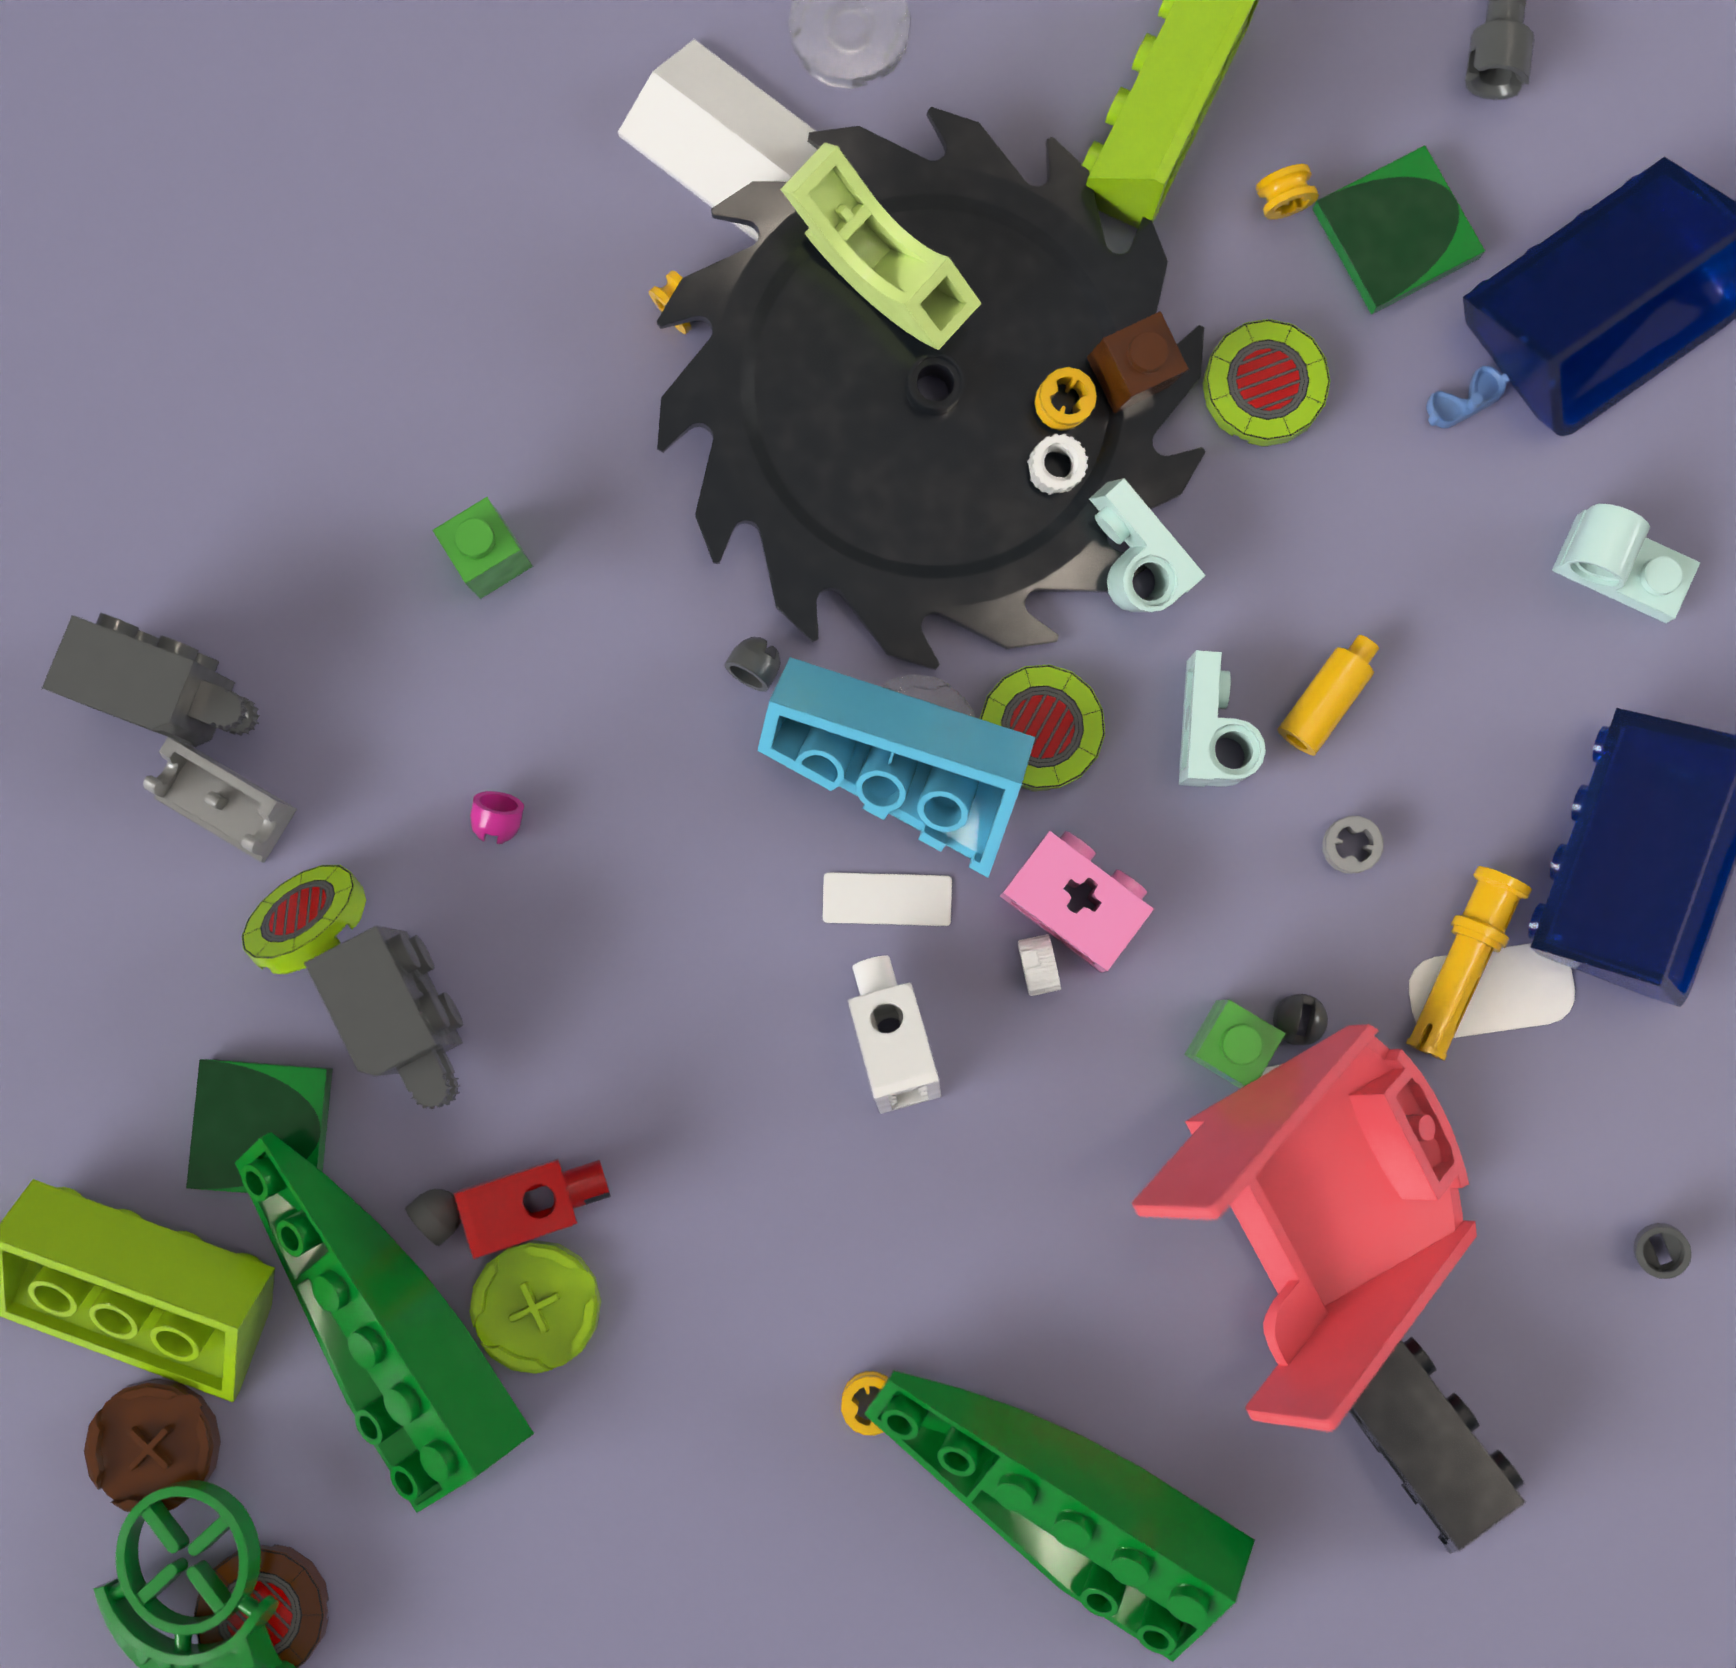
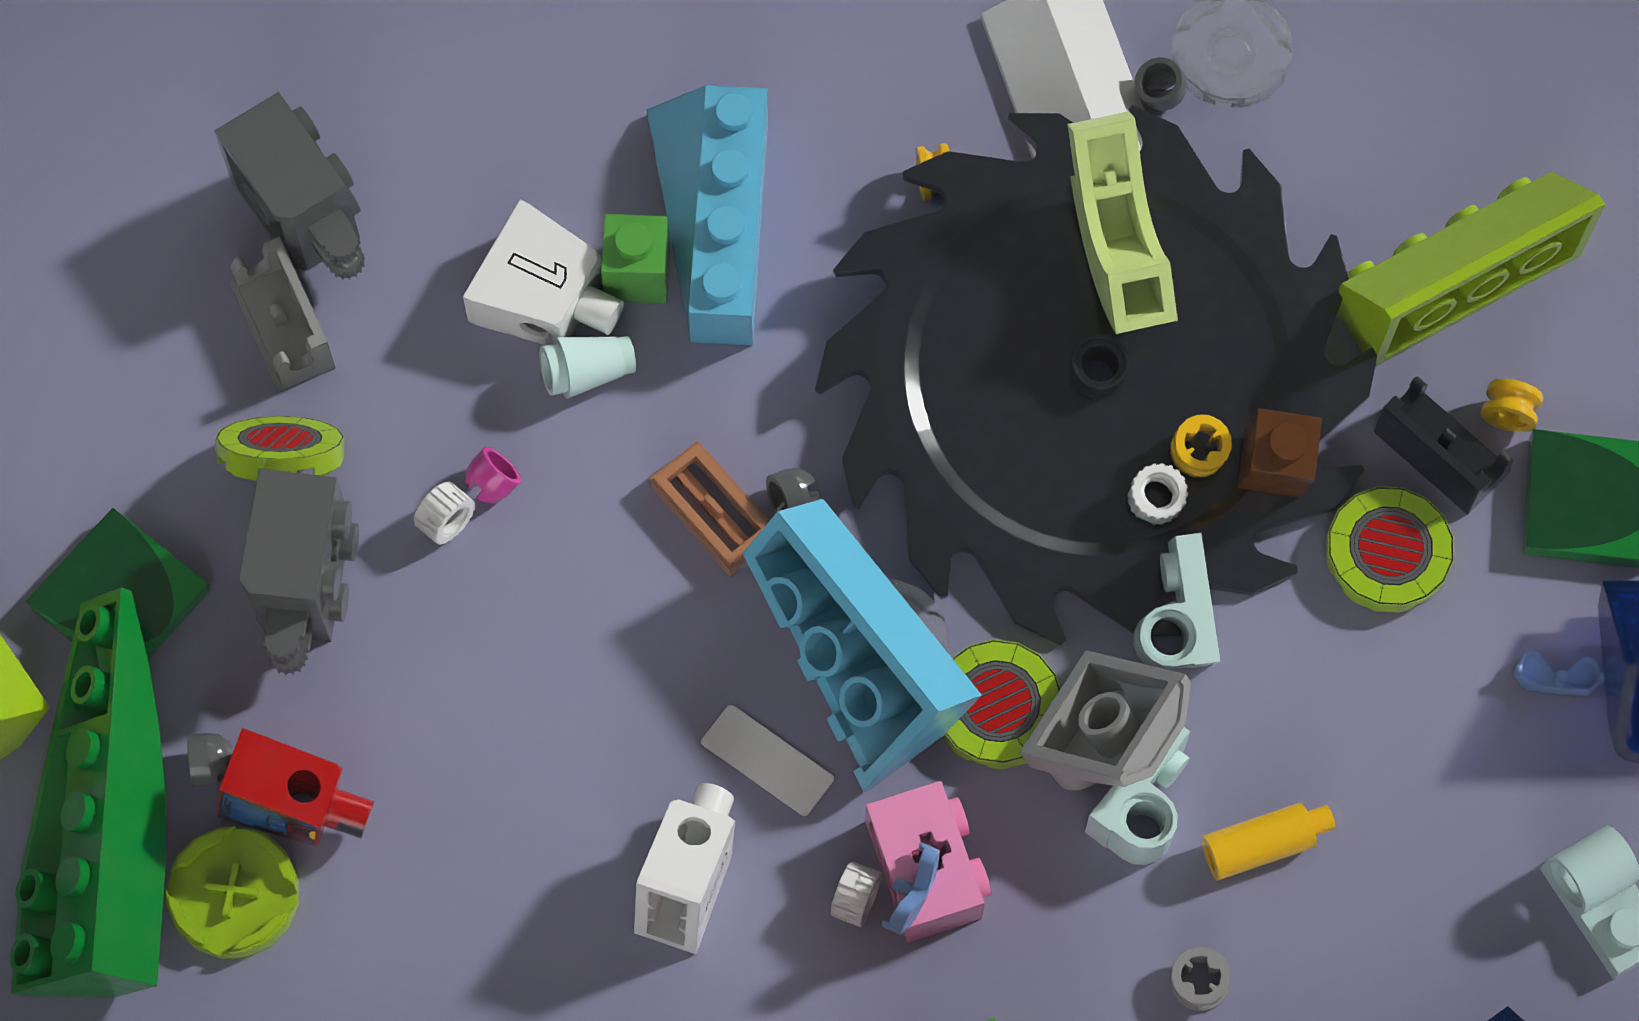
camera: 30 degrees right, 15 degrees down
(417, 622) = (540, 282): none -> white torso
(479, 875) = (444, 512): none -> white axle
(500, 438) = (712, 189): none -> medium azure wedge
(504, 667) = (584, 363): none -> light aqua cone
(748, 732) = (692, 521): none -> nougat tile
(805, 90) = (1157, 76): none -> dark grey hinge
(1096, 939) = (916, 893): none -> medium blue piece
(1154, 689) = (1109, 723): none -> light grey slope
(1254, 267) = (1441, 447): none -> black hinge

